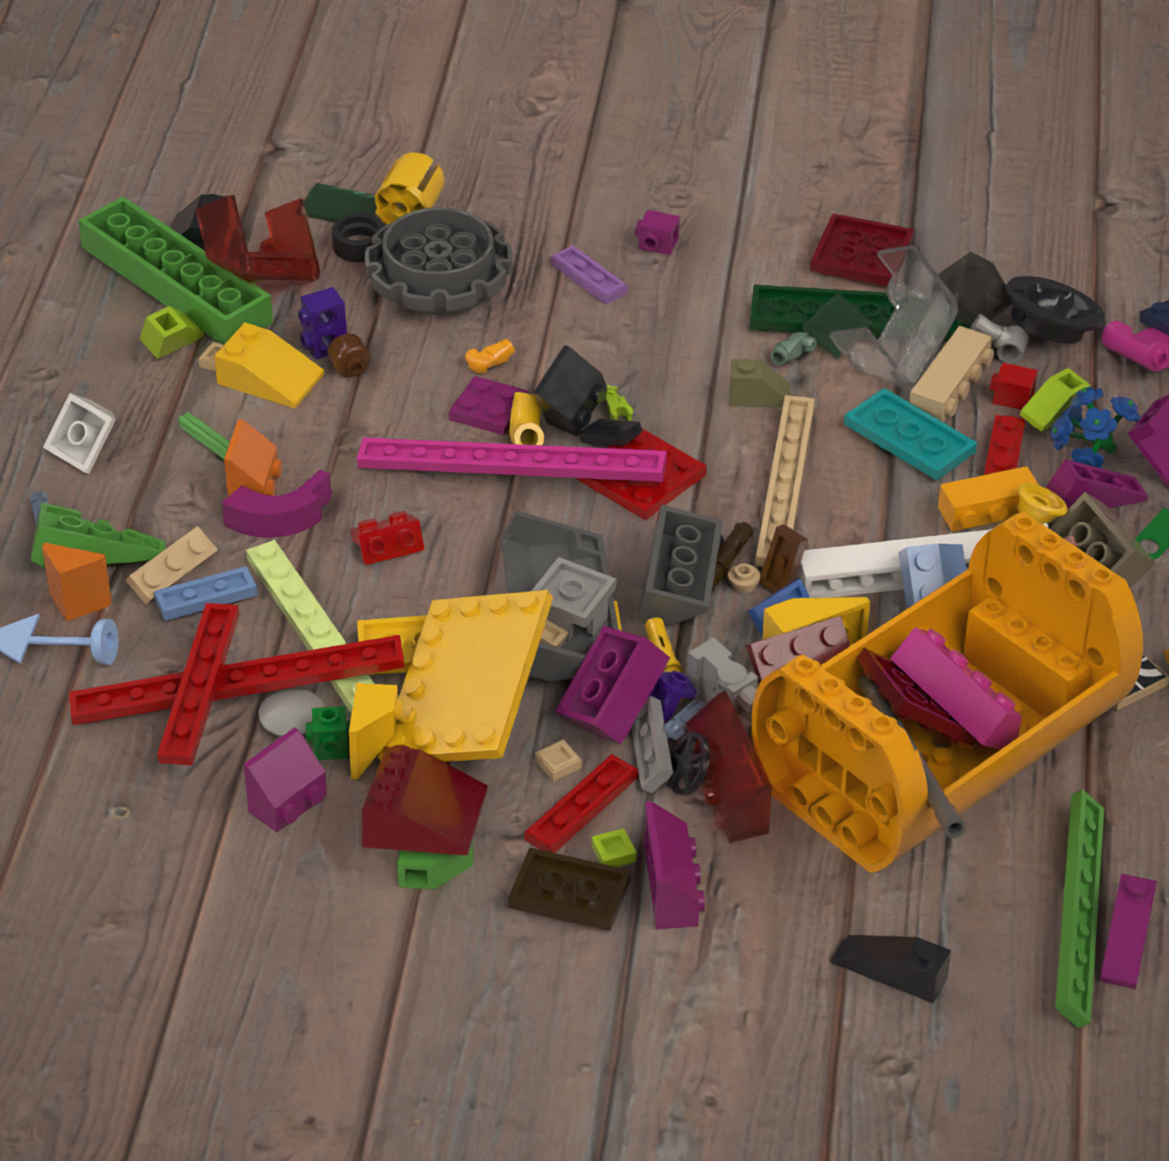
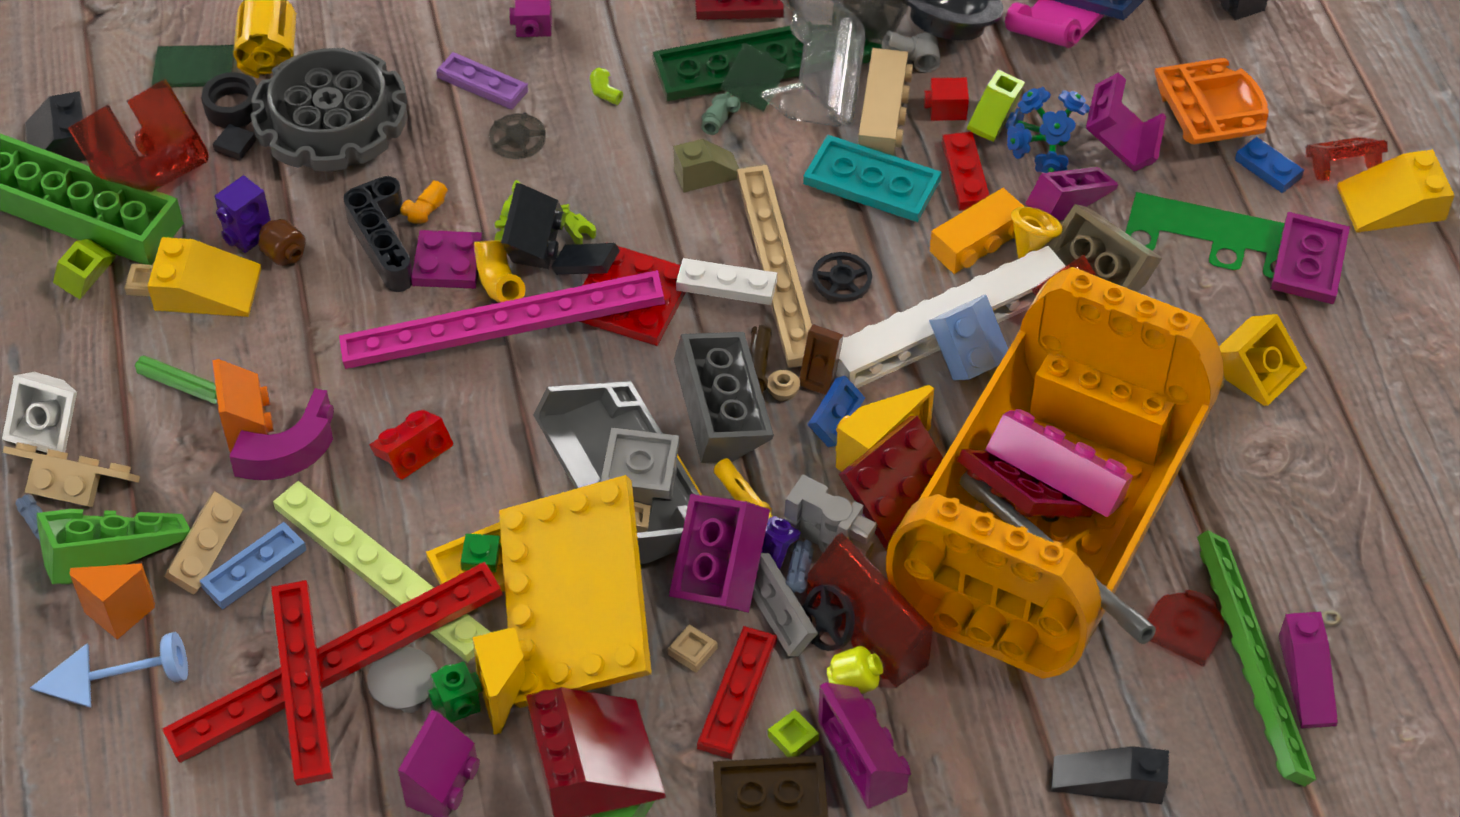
camera: 20 degrees left, 10 degrees up
(81, 489) = (65, 479): none -> tan bracket
(346, 271) = (234, 142): none -> black tile
(406, 627) = (480, 549): none -> green plate
(434, 351) = (367, 215): none -> black beam
(599, 325) = (517, 135): none -> clear smoke wheel
(694, 304) = (601, 87): none -> lime arm
(695, 809) = (855, 669): none -> neon yellow head
(729, 479) = (726, 281): none -> white plate
(842, 506) = (842, 277): none -> black wheel
(1027, 867) = (1187, 625): none -> clear red tile

